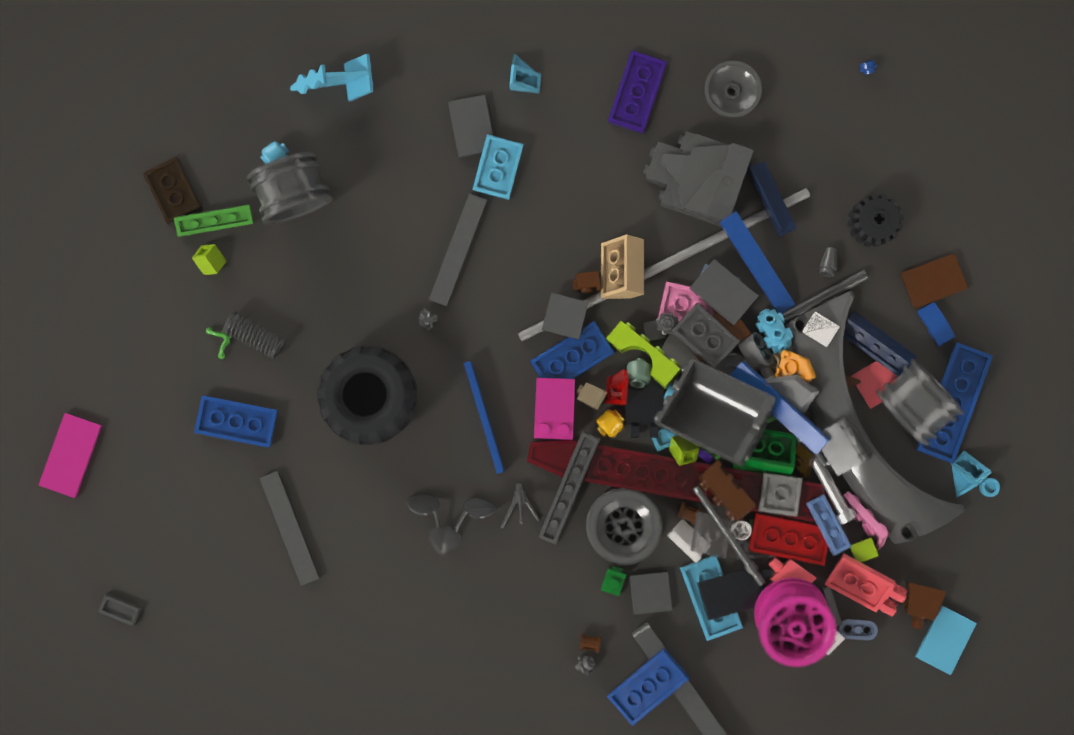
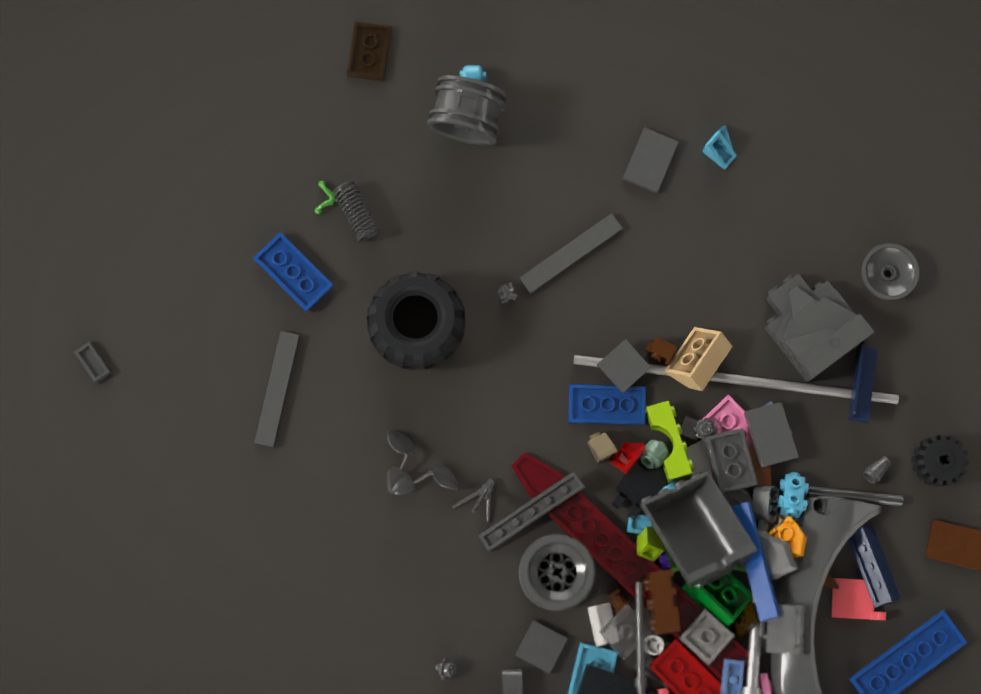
camera: 30 degrees right, 5 degrees down
(70, 455) = (139, 209): dark pink tile -> none
(209, 259) = (361, 126): lime panel -> none
(213, 220) = (387, 97): bright green plate -> none
(356, 77) = (581, 57): medium azure piece -> none
(484, 417) = (500, 405): blue tile -> none
(498, 167) = (650, 207): medium azure tile -> none
(554, 408) = (563, 436): dark pink slope -> none
(590, 643) = (461, 654): reddish brown bush -> none
(610, 423) = (602, 481): yellow head -> none
(613, 580) = (517, 615): green bracket -> none
(637, 91) = (807, 222): dark purple tile -> none
(757, 262) = (815, 429): blue tile -> none
(820, 329) = (833, 519): white sticker -> none
(920, 402) = (878, 637): dark grey wheel -> none
(936, 323) = (935, 583): blue slope -> none

